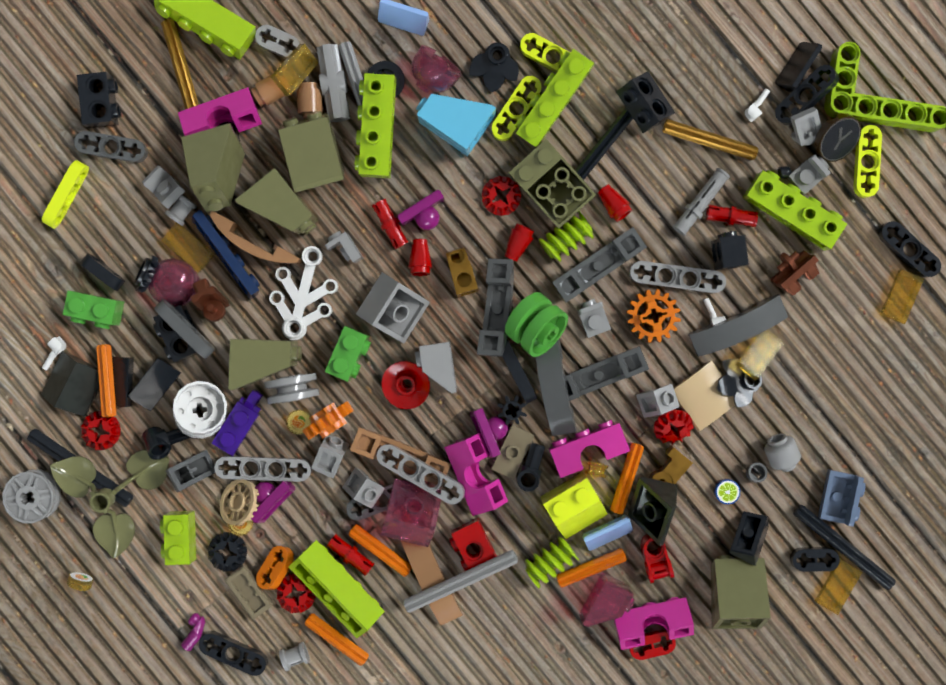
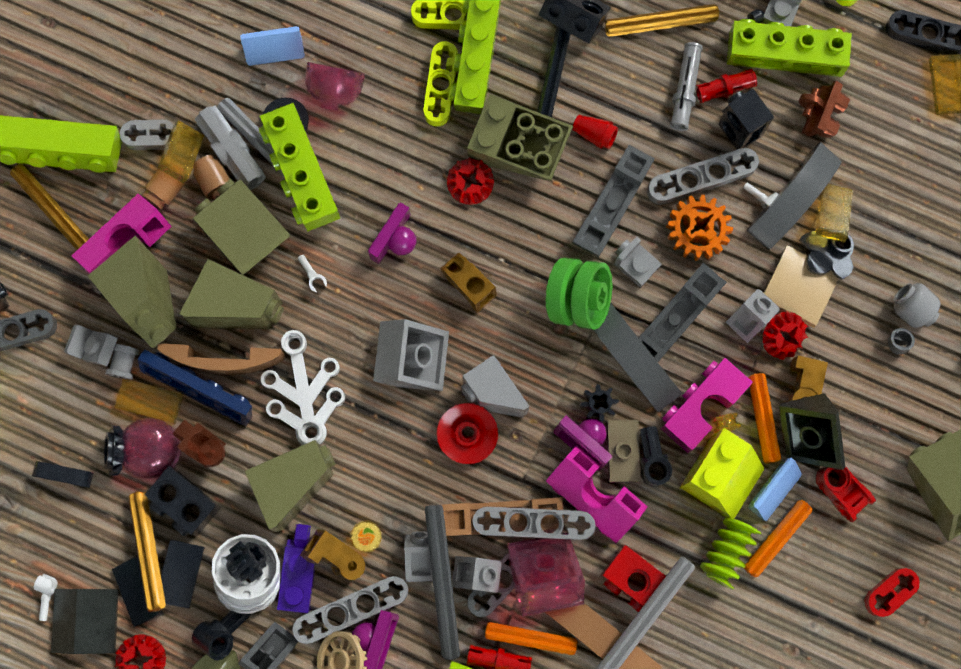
camera: 30 degrees left, 10 degrees down
(93, 308) = (70, 519): bright green brick -> none
(106, 380) = (121, 596): orange axle -> none
(137, 358) = (147, 552): none -> axle
(184, 329) = (186, 487): dark grey beam -> none
(201, 404) = (246, 561): none -> black gear
(272, 430) = (343, 560): none -> pearl gold leg
(292, 388) = (340, 497): light grey wheel -> none
(328, 420) = (399, 514): orange gear -> none
(336, 481) = (442, 581): none -> dark grey axle
(348, 353) = (384, 429): bright green brick -> none
(349, 210) = (312, 275): none -> white hand
(349, 248) = (331, 314): light grey bracket -> none
(390, 223) = (363, 267): red pin -> none
(420, 259) = (415, 289): red cone -> none
(456, 120) = (381, 121): medium azure slope -> none
(493, 70) = (397, 56): black plate -> none
(498, 307) = (526, 299): dark grey slope -> none
(518, 241) = (513, 219): red cone -> none
(518, 374) = (580, 357): black beam -> none
(567, 237) = (562, 188): lime piece -> none
(606, 601) = (816, 563): clear pink slope -> none
(672, 615) = (896, 545): dark pink arch -> none
(727, 491) = (880, 378): tile -> none
(750, 537) = (933, 414): black slope -> none

